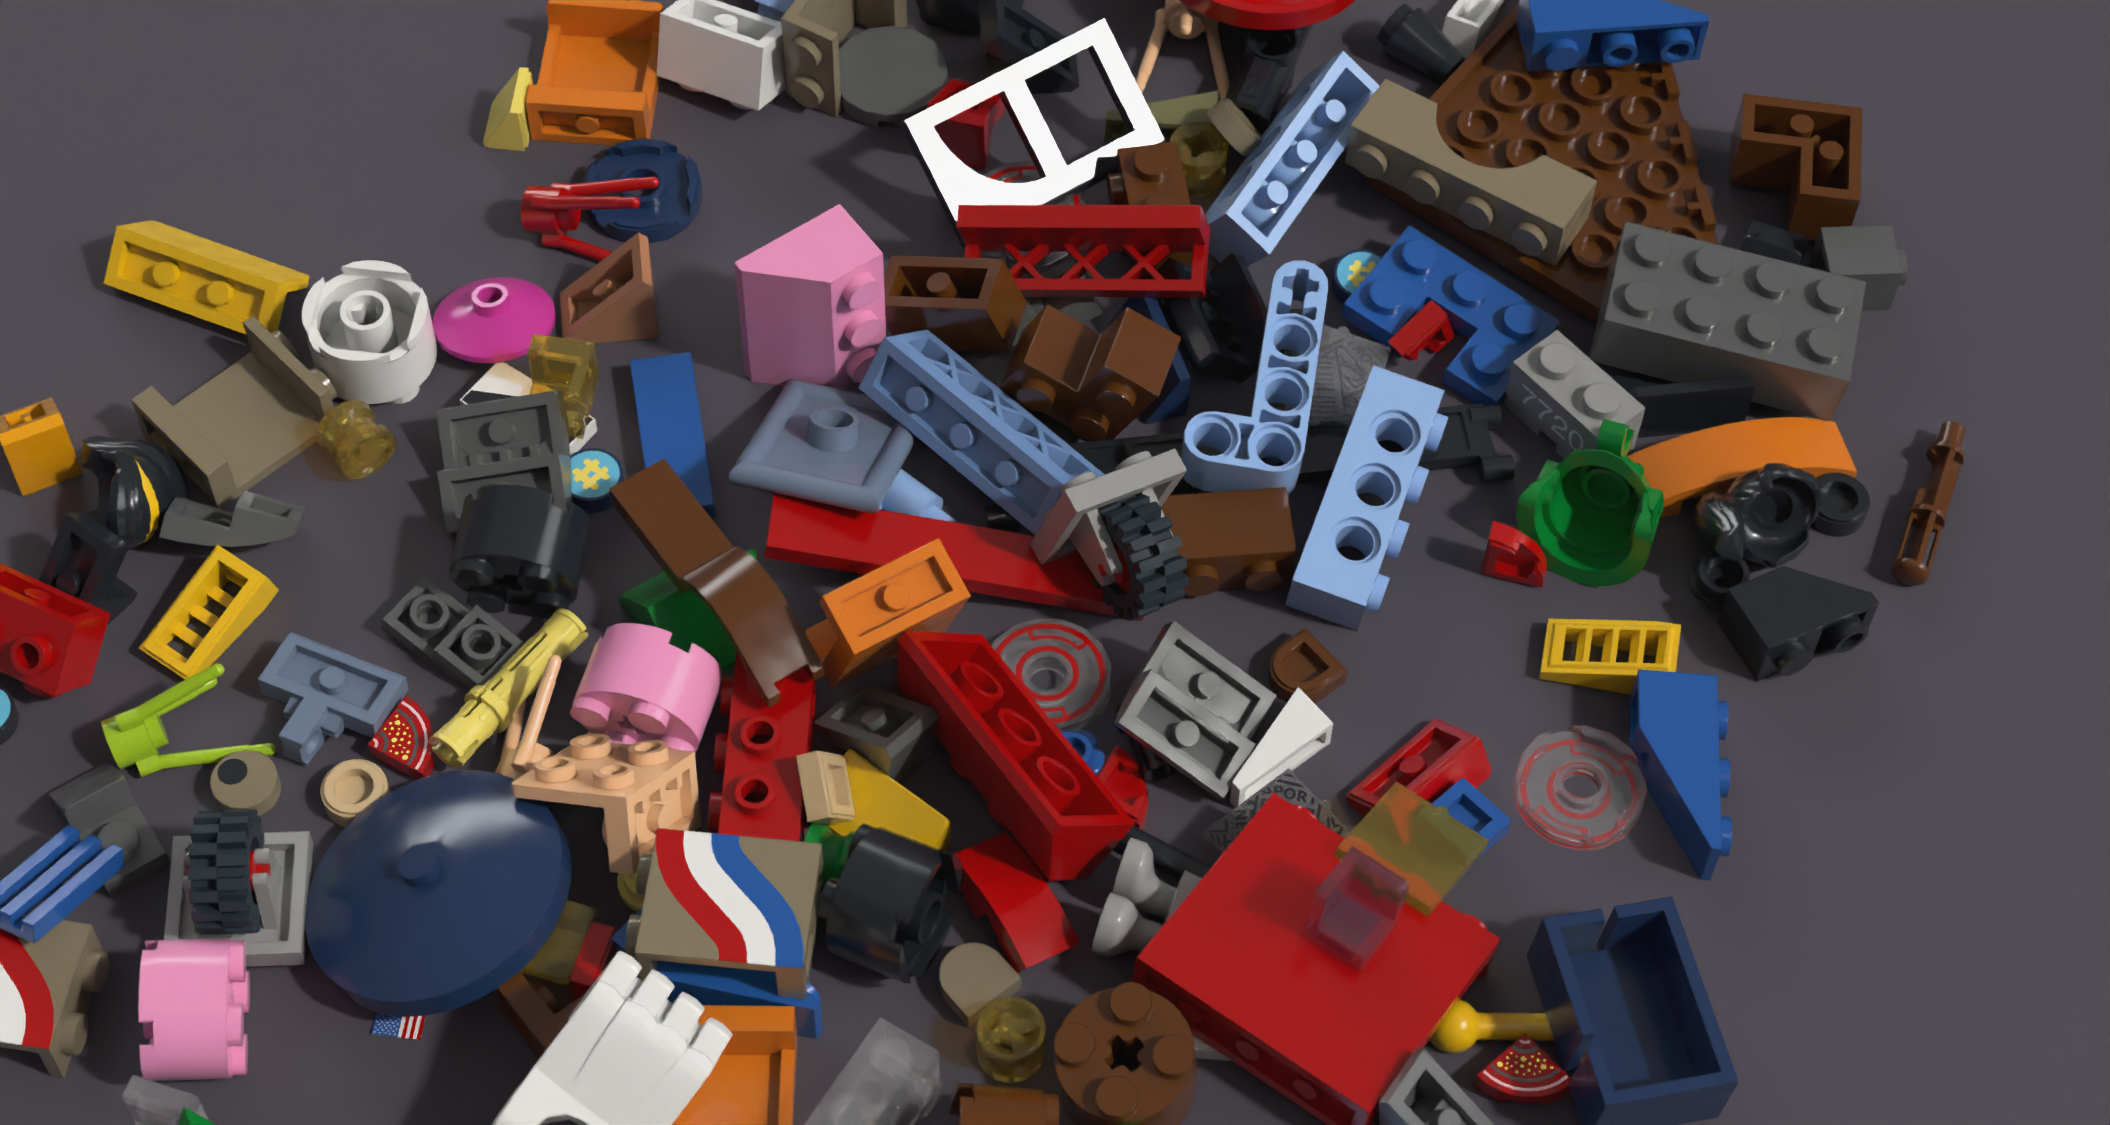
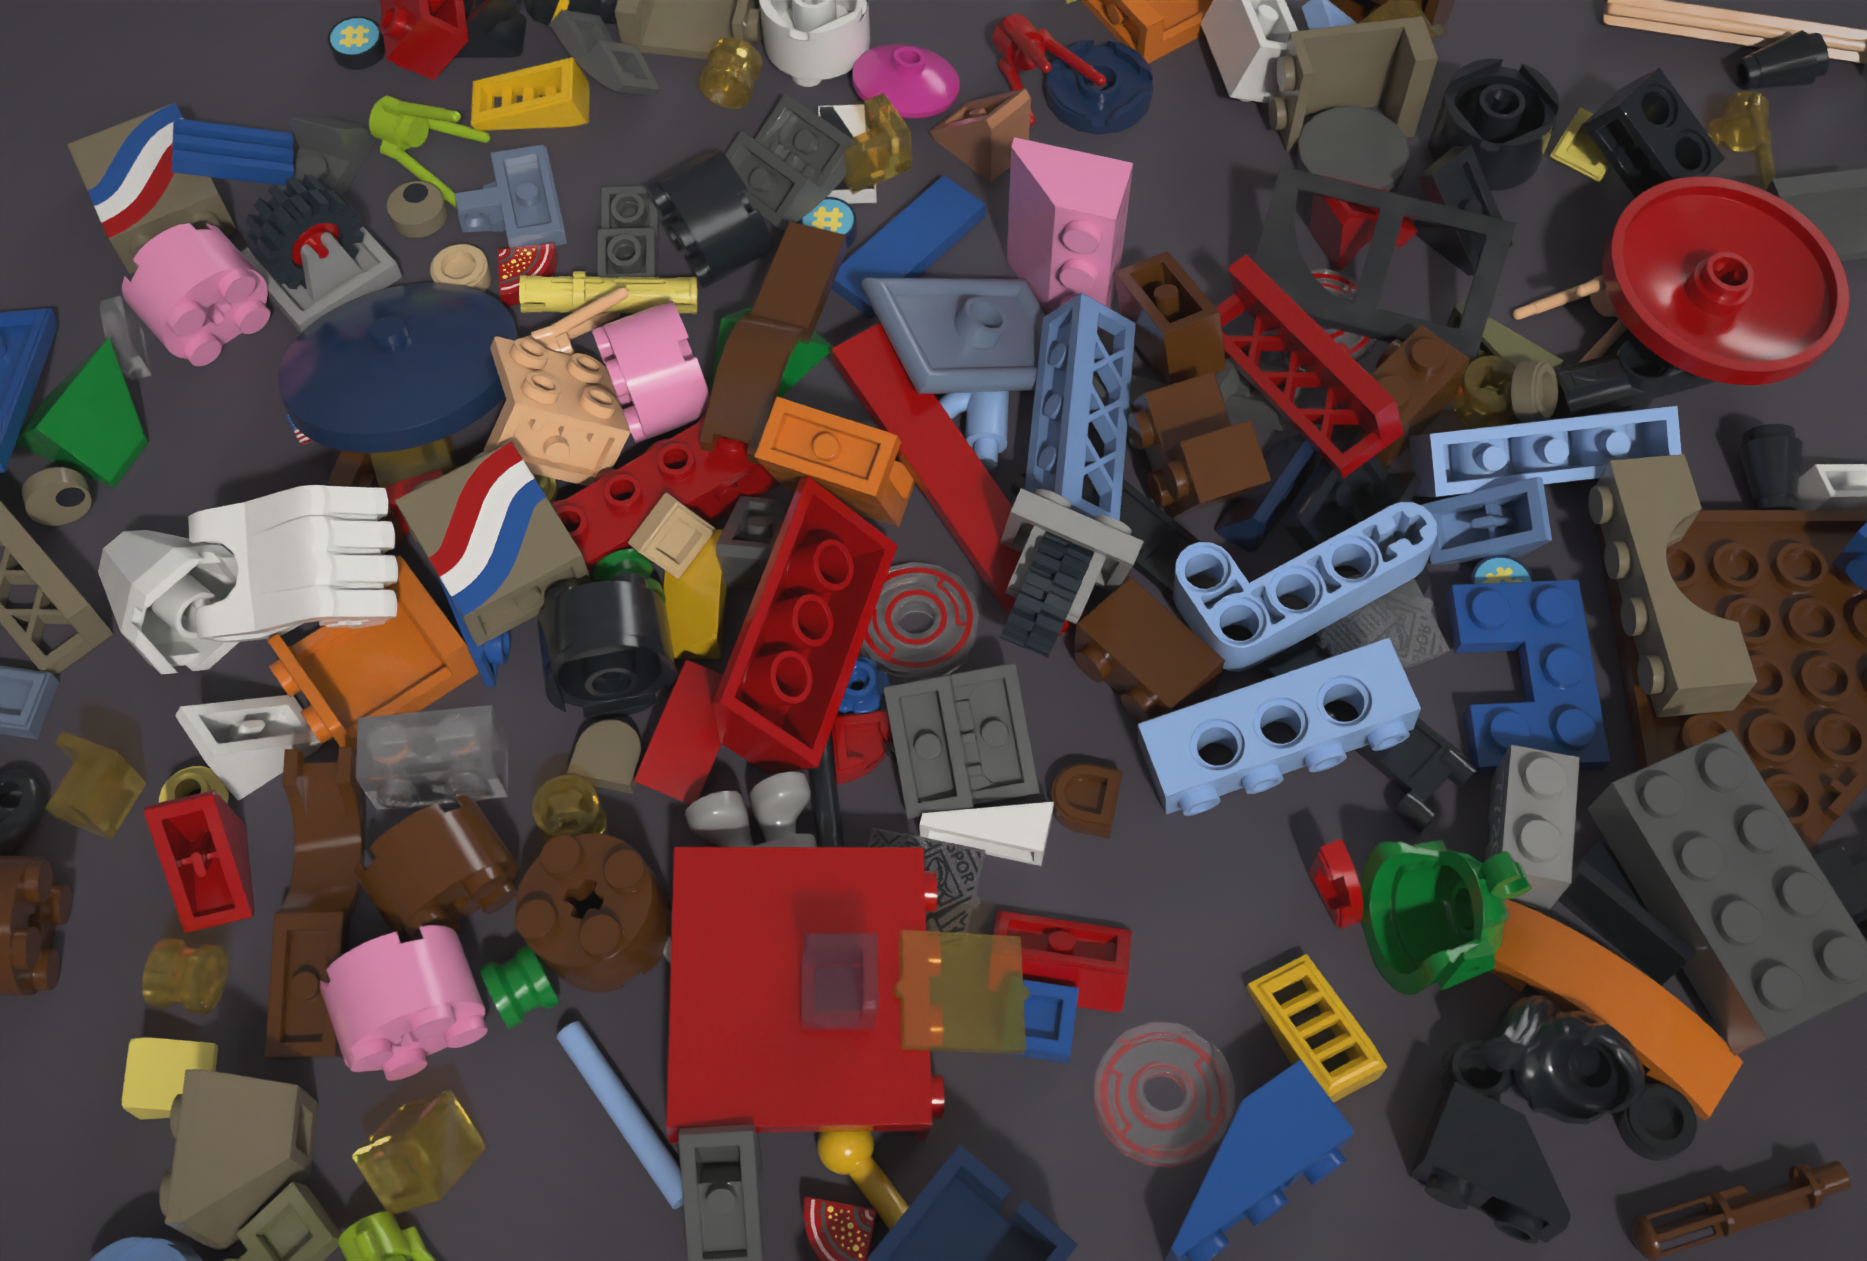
camera: 55 degrees right, 5 degrees up
(1321, 230) = (1491, 523): none -> medium blue slope
(1427, 329) = (1488, 661): red tile -> none

